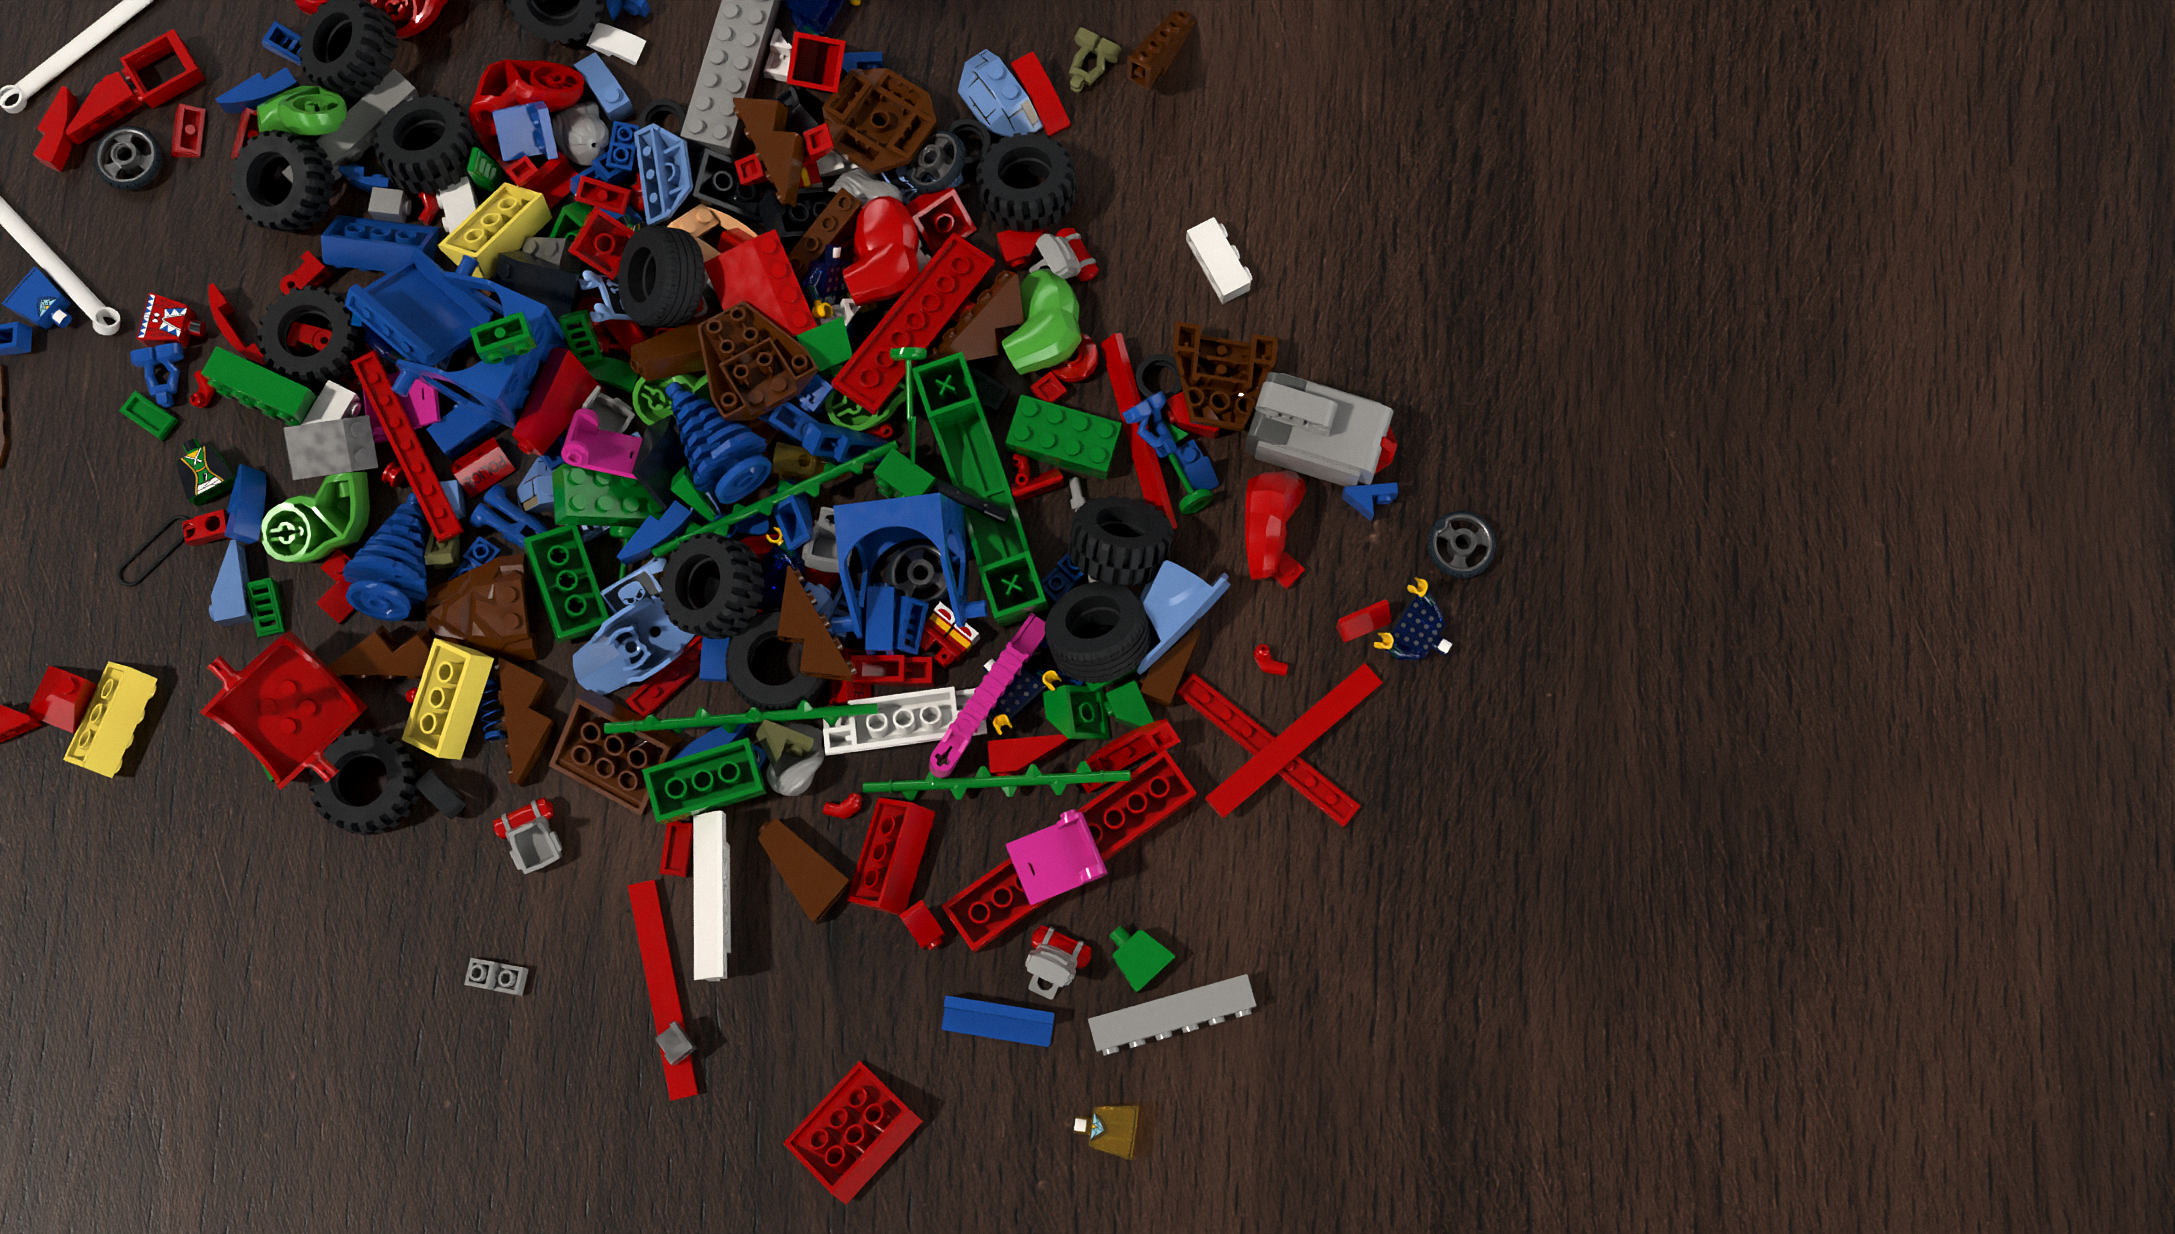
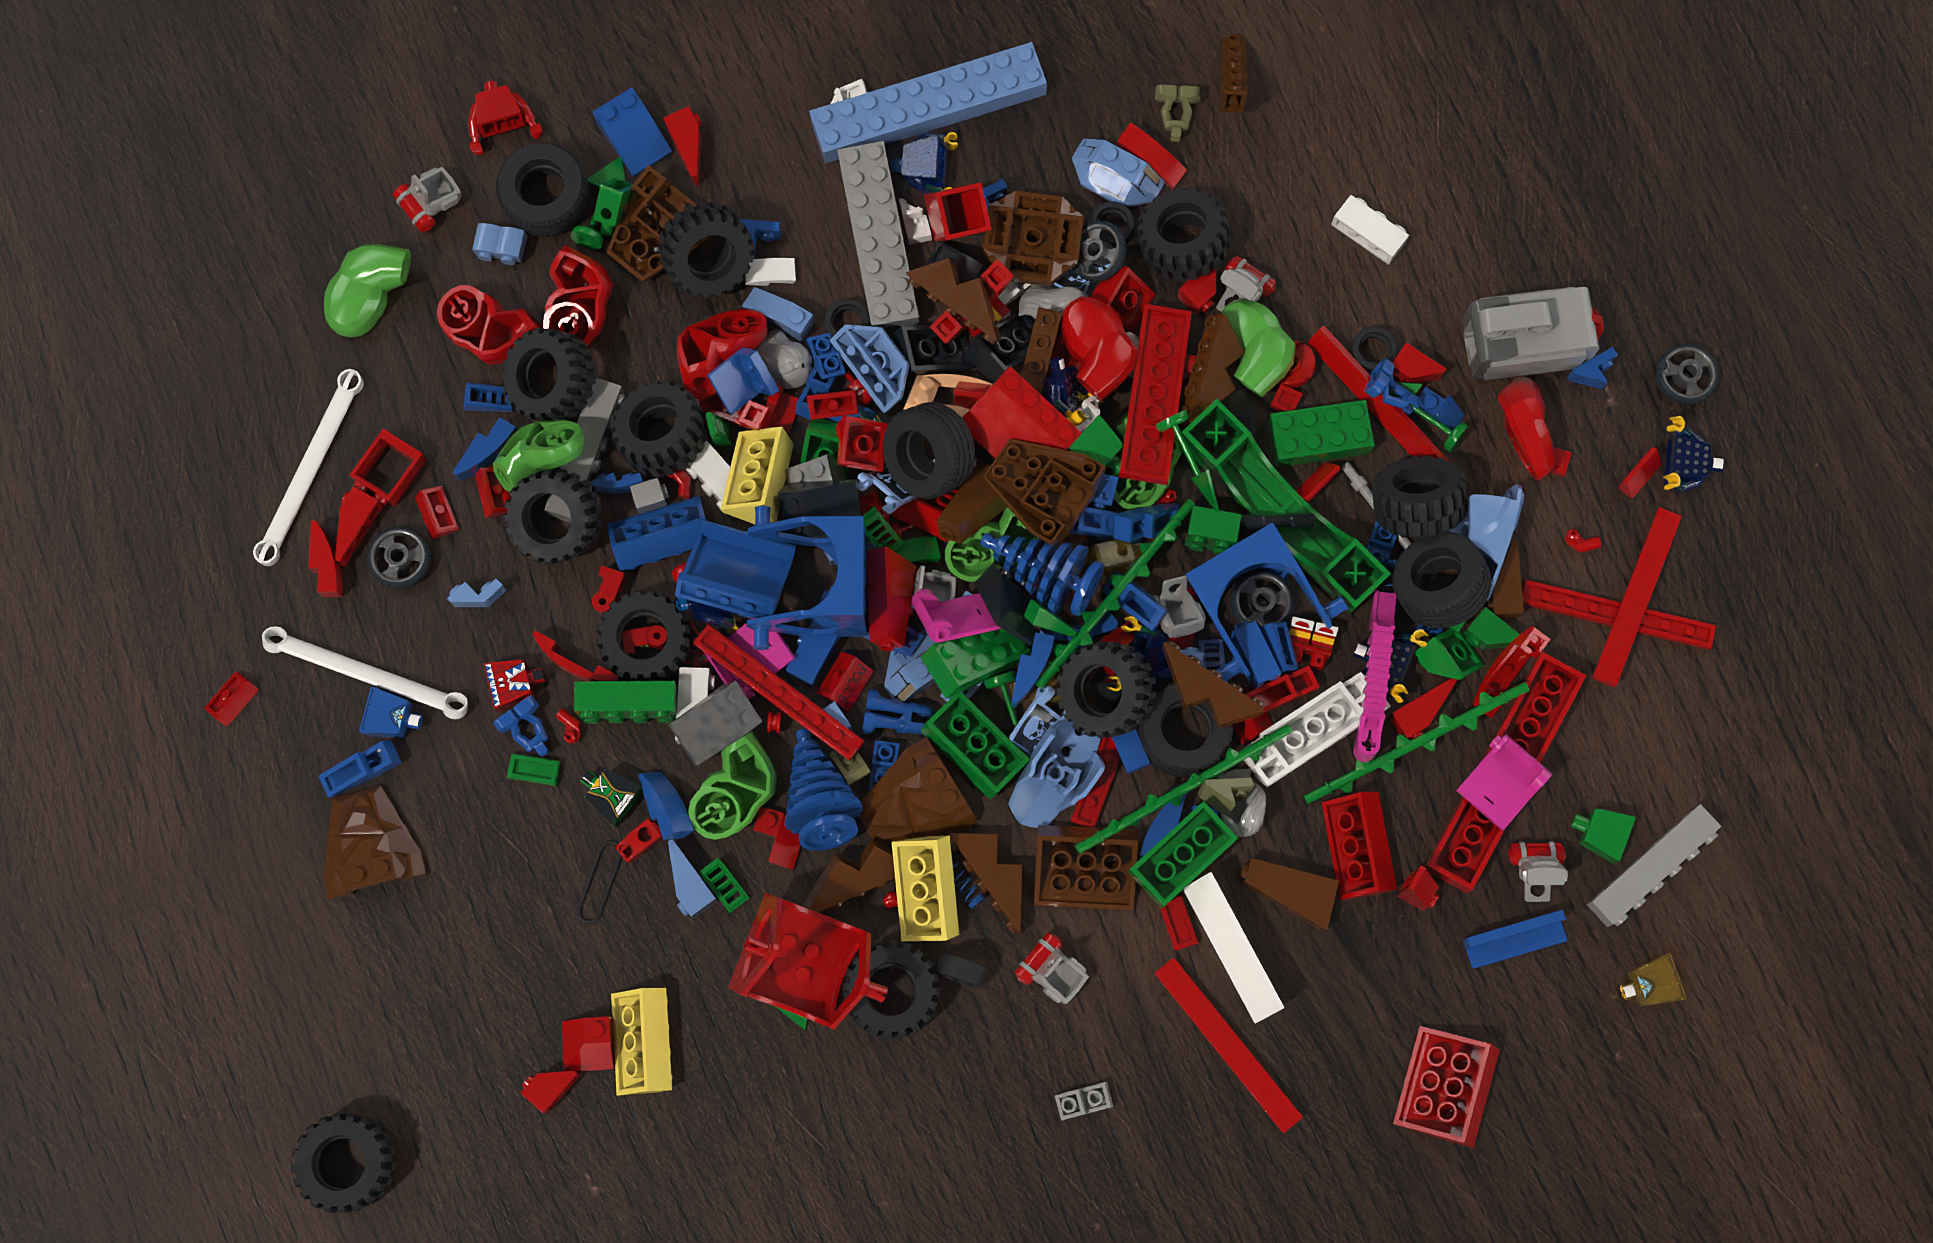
camera: 25 degrees left, 0 degrees up
(171, 222) = (464, 595): none -> medium blue slope
(503, 338) = (851, 555): green brick -> none
(675, 1043) = (1265, 1083): flat silver panel -> none
(845, 809) = (1300, 825): red arm -> none
(1022, 463) = (1299, 475): red arm -> none
(1221, 374) = (1428, 322): reddish brown wedge -> none

